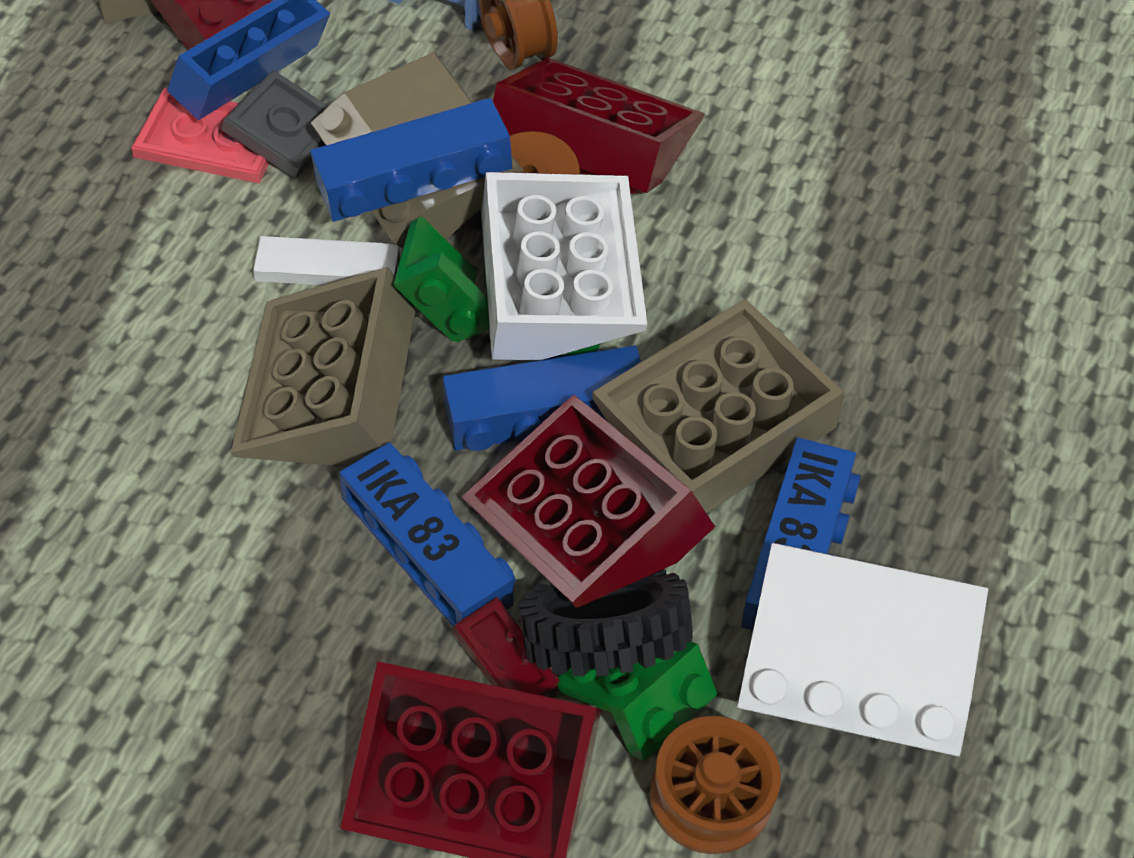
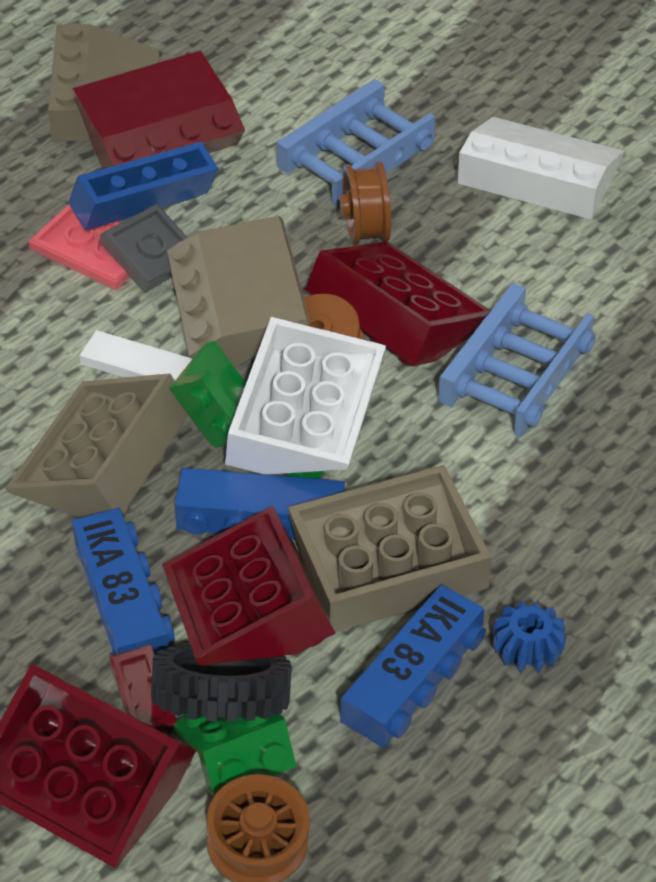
camera: 20 degrees right, 5 degrees down
(411, 159) = (219, 294): blue brick -> none
(721, 137) = (496, 333): none -> medium blue fence
(864, 649) = (415, 759): white slope -> none
(910, 471) = (529, 636): none -> blue gear

